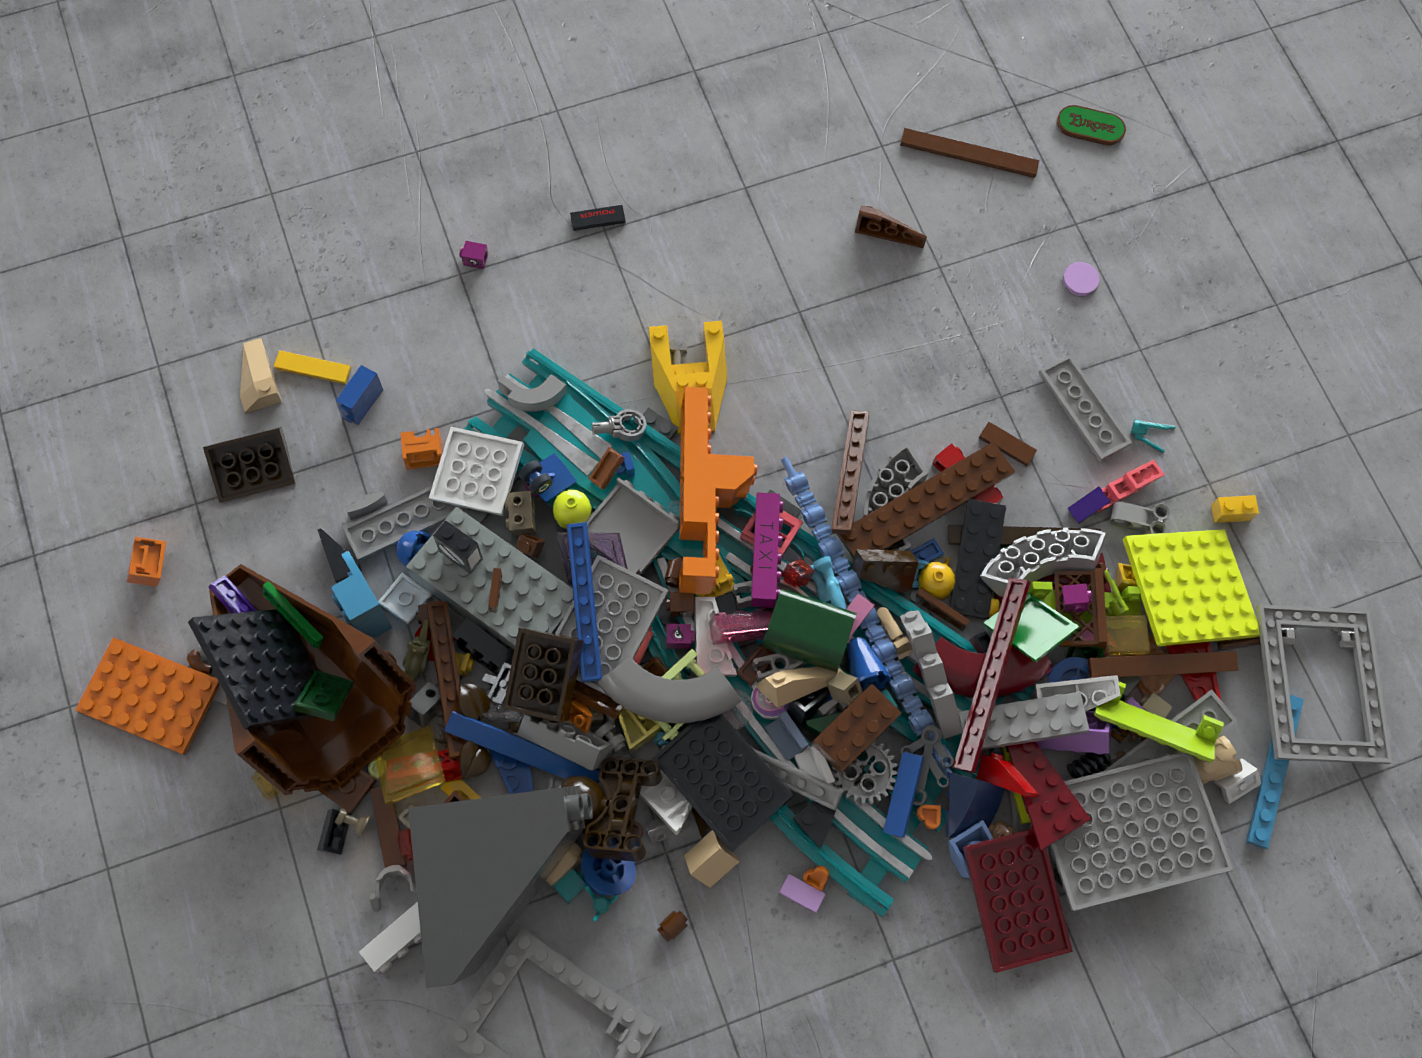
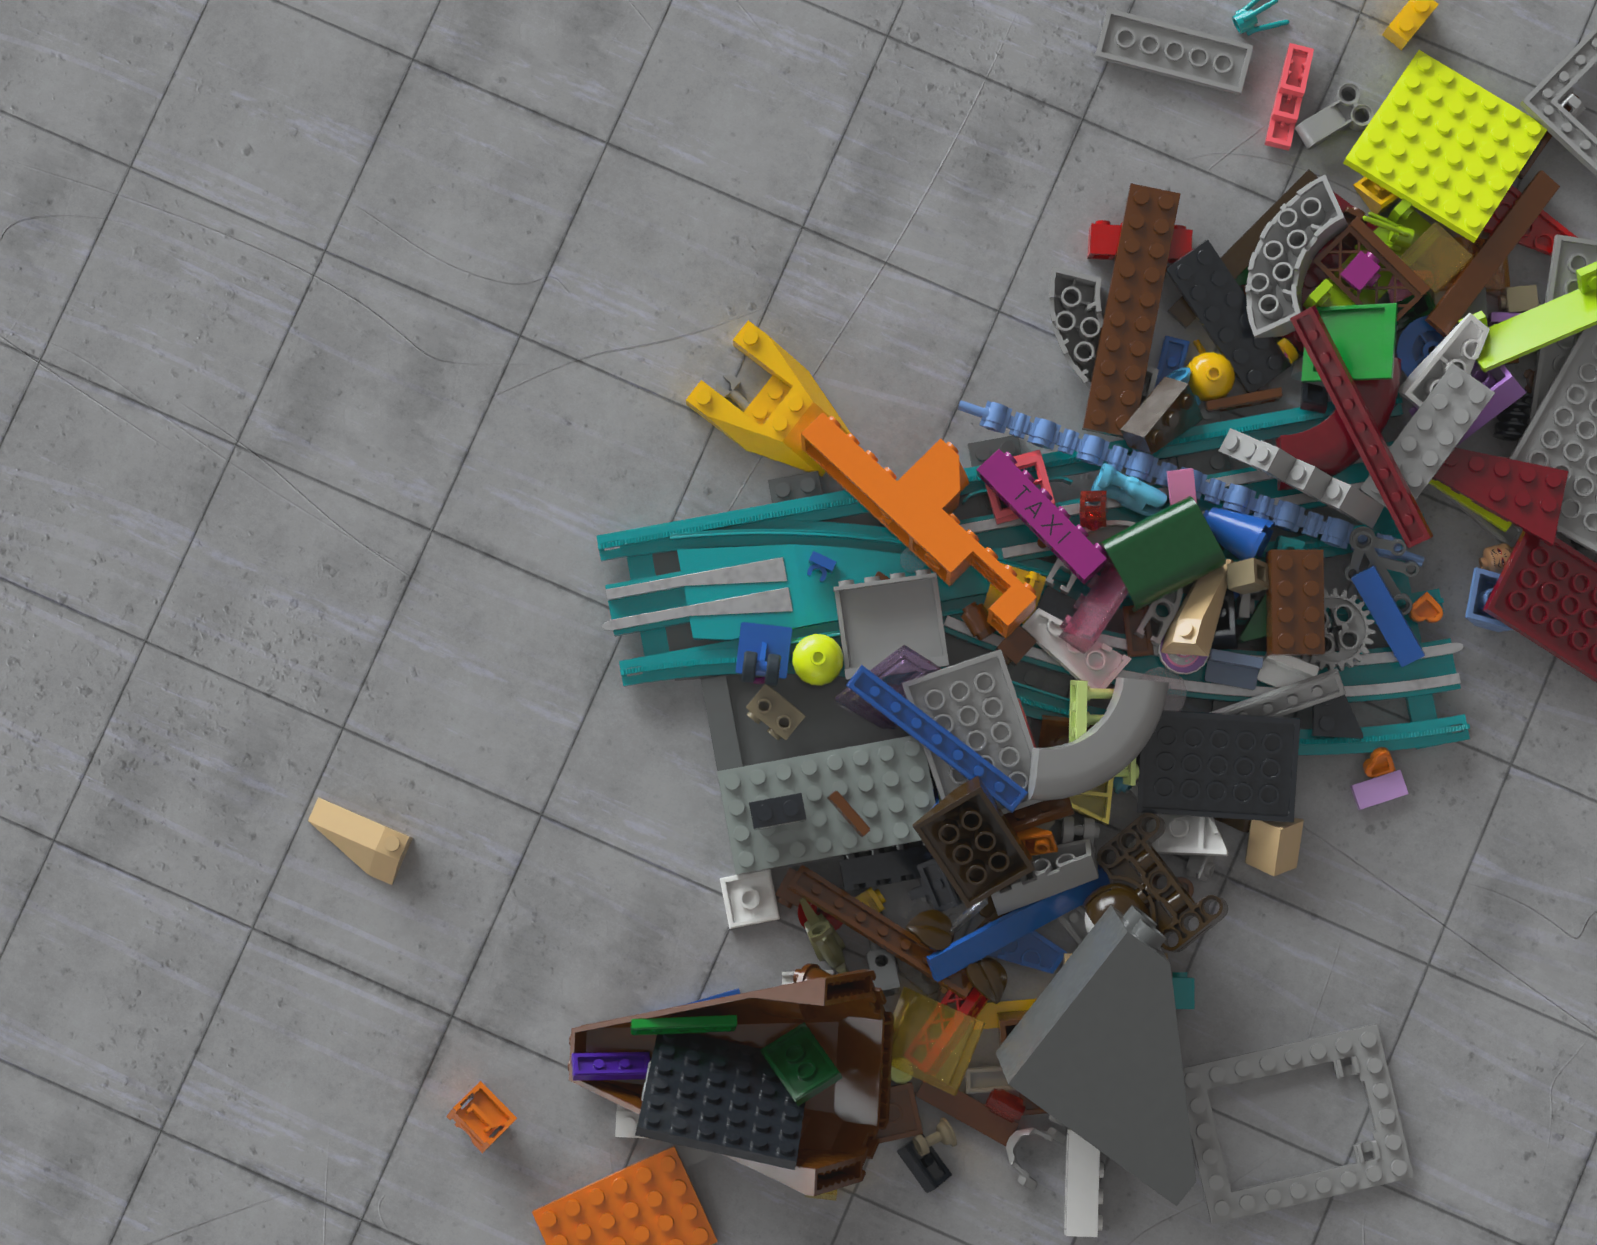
camera: 45 degrees left, 15 degrees up
(194, 661) = (631, 1154): reddish brown arm -> none
(249, 464) = (460, 928): dark brown slope -> none
(312, 367) = (403, 774): yellow tile -> none
(336, 561) = (655, 928): black slope -> none
(358, 602) = (730, 949): dark azure brick -> none
(359, 395) = (488, 757): blue brick -> none
(373, 501) = (617, 841): light grey slope -> none
(386, 526) = (664, 828): light grey plate -> none
(410, 544) = (709, 847): blue cylinder -> none
(421, 451) = (610, 747): orange piece -> none
(474, 254) = (426, 497): magenta brick -> none
(476, 471) = (687, 715): white plate -> none
(530, 545) = (819, 738): reddish brown brick -> none
(533, 399) = (665, 589): light grey arch -> none
(597, 217) = (499, 329): black tile -> none
(600, 903) = (1222, 981): teal plant -> none
(606, 468) = (808, 587): dark orange tile -> none
(607, 875) = (1206, 955): blue piece -> none
(616, 429) = (778, 537): light grey pin -> none
(672, 925) = (1301, 933): reddish brown brick -> none
(680, 636) = (1045, 677): magenta brick -> none
(850, 473) = (1031, 352): plate -> none
(883, 226) = (786, 50): reddish brown wedge -> none
(901, 643) = (1247, 477): tan piece -> none
(970, 803) = (1451, 561): dark blue wedge -> none
(1004, 774) = (1455, 507): red slope -> none
(1008, 444) = (1138, 165): reddish brown tile -> none
(1089, 505) = (1275, 154): dark purple tile -> none

